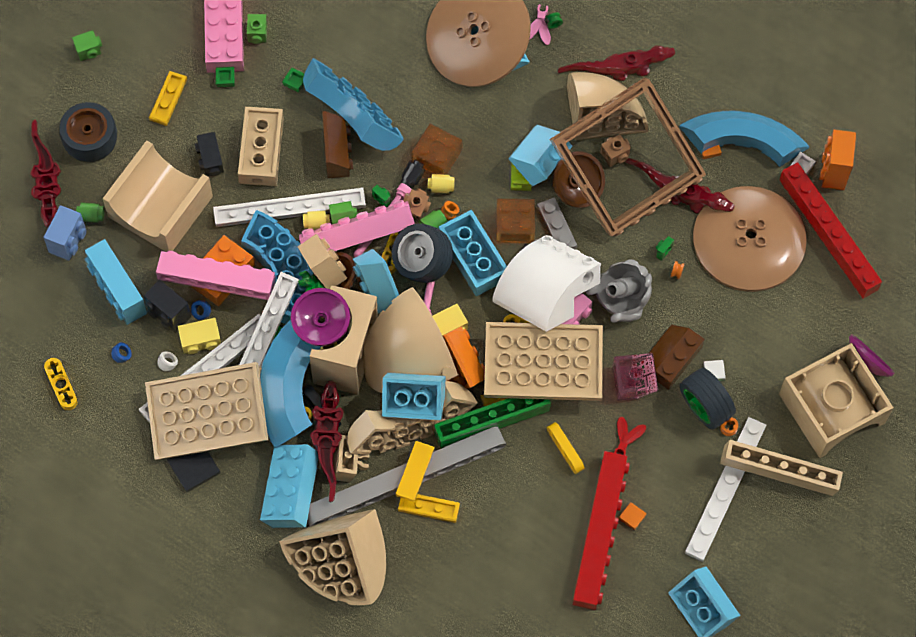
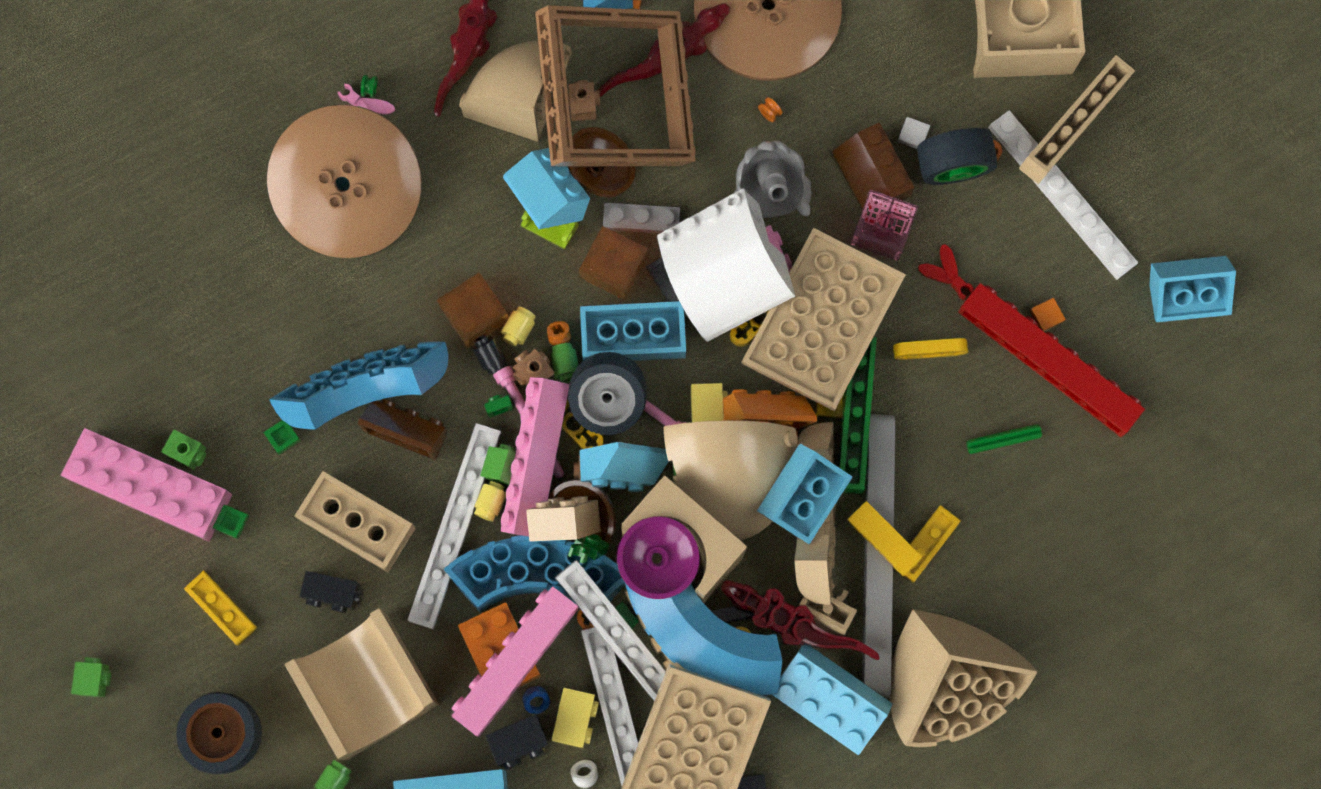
camera: 65 degrees left, 10 degrees up
(530, 527) = (1004, 438): none -> green axle
(664, 247) = (735, 110): green plate -> none

